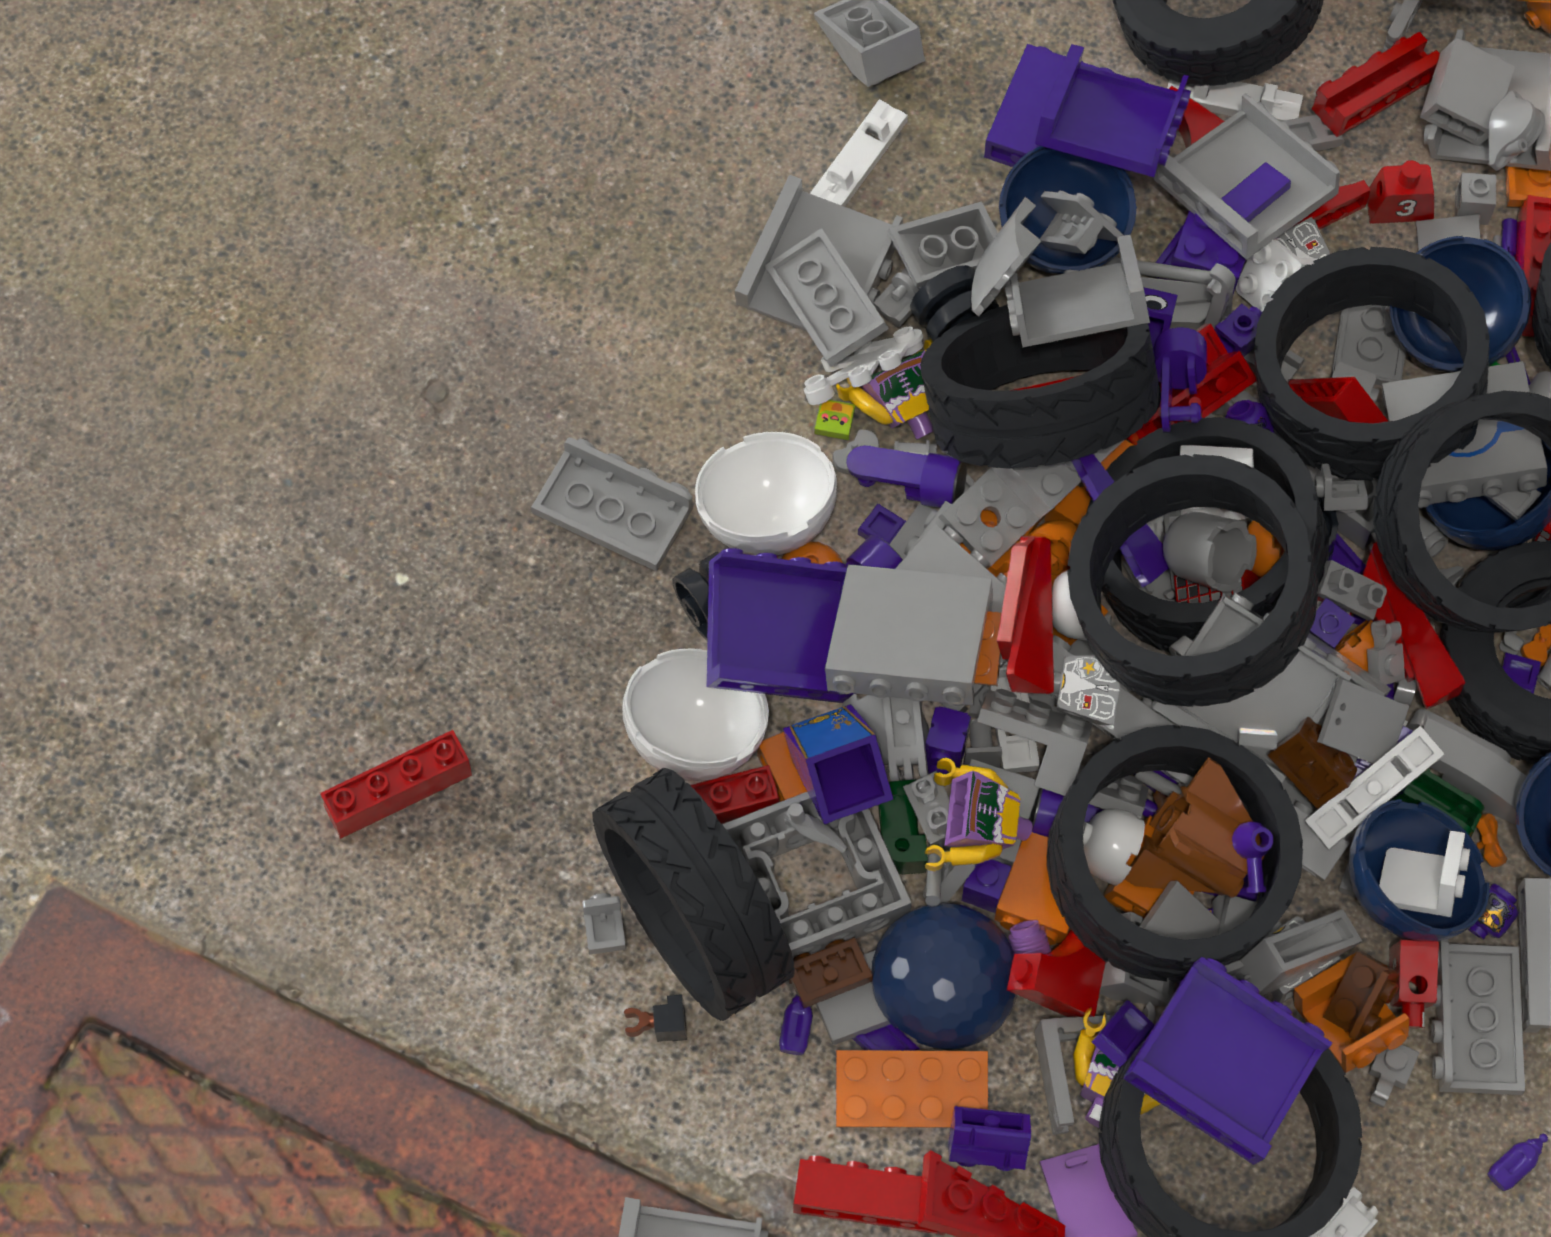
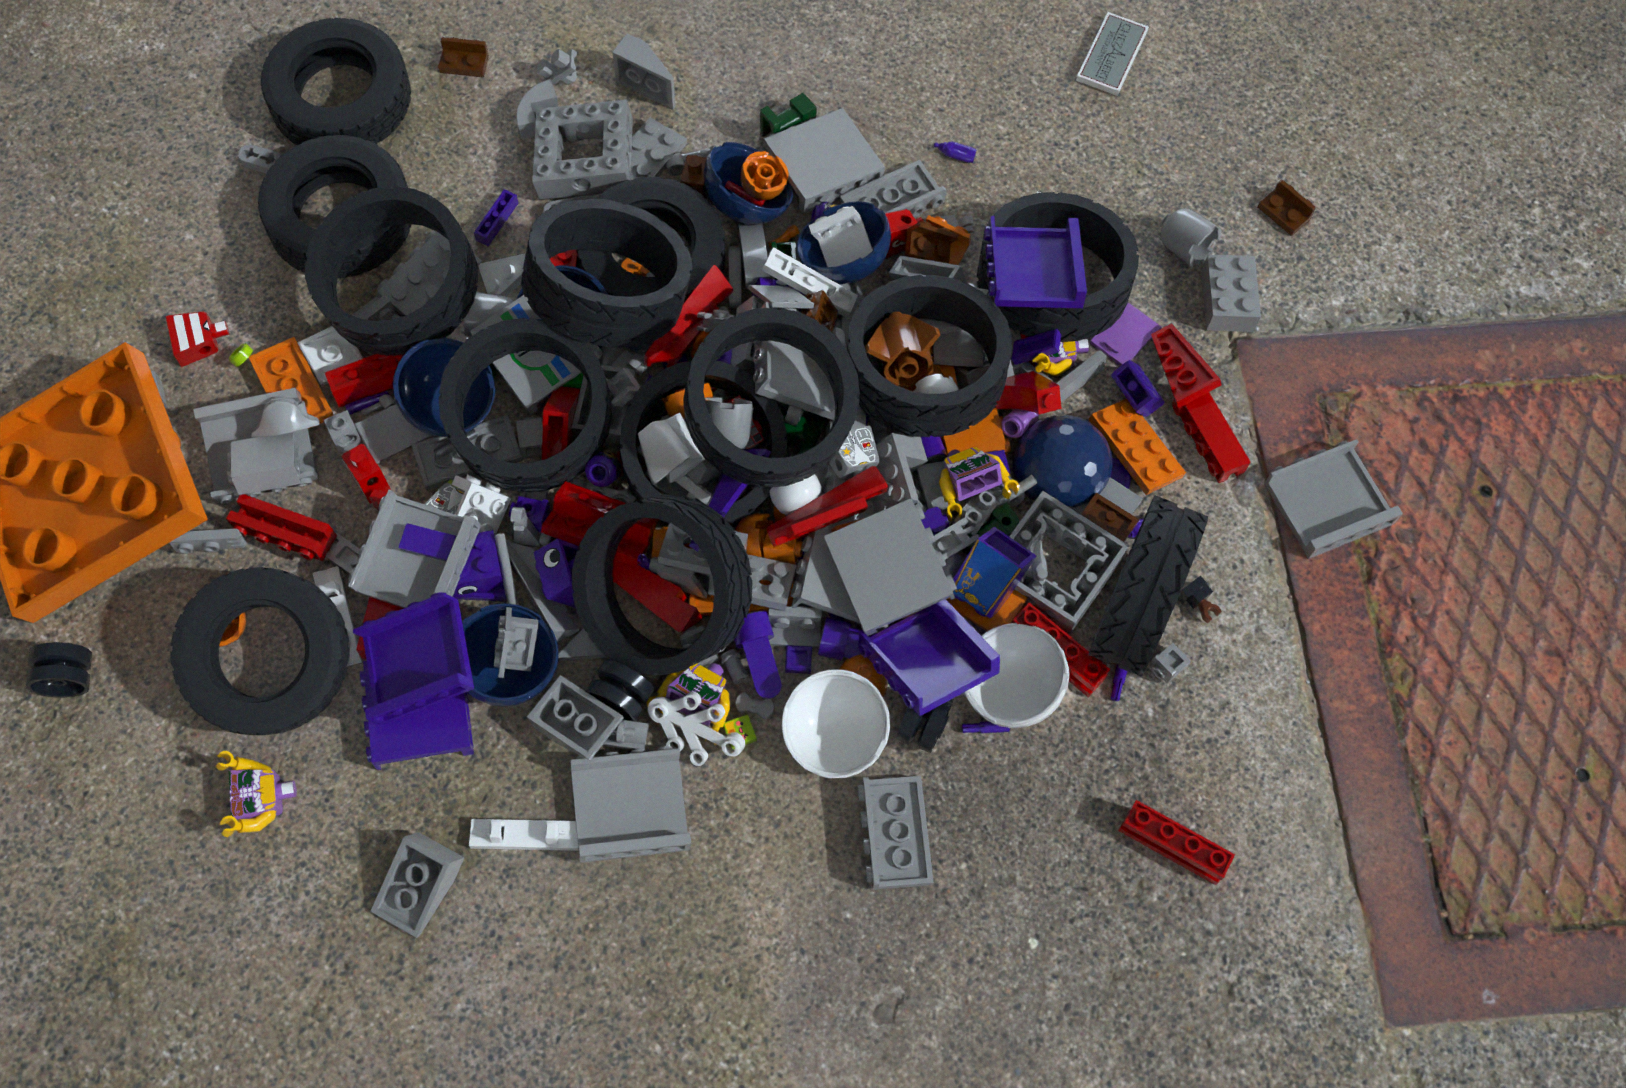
camera: 125 degrees left, 0 degrees up
(826, 297) = (661, 777): light grey plate -> none
(1003, 258) = (577, 660): light grey slope -> none
(1078, 301) = (585, 592): light grey panel -> none
(1180, 364) = (587, 511): dark purple piece -> none
(1247, 848) = (896, 312): dark purple bar -> none
(1351, 590) = (685, 346): light grey hips -> none

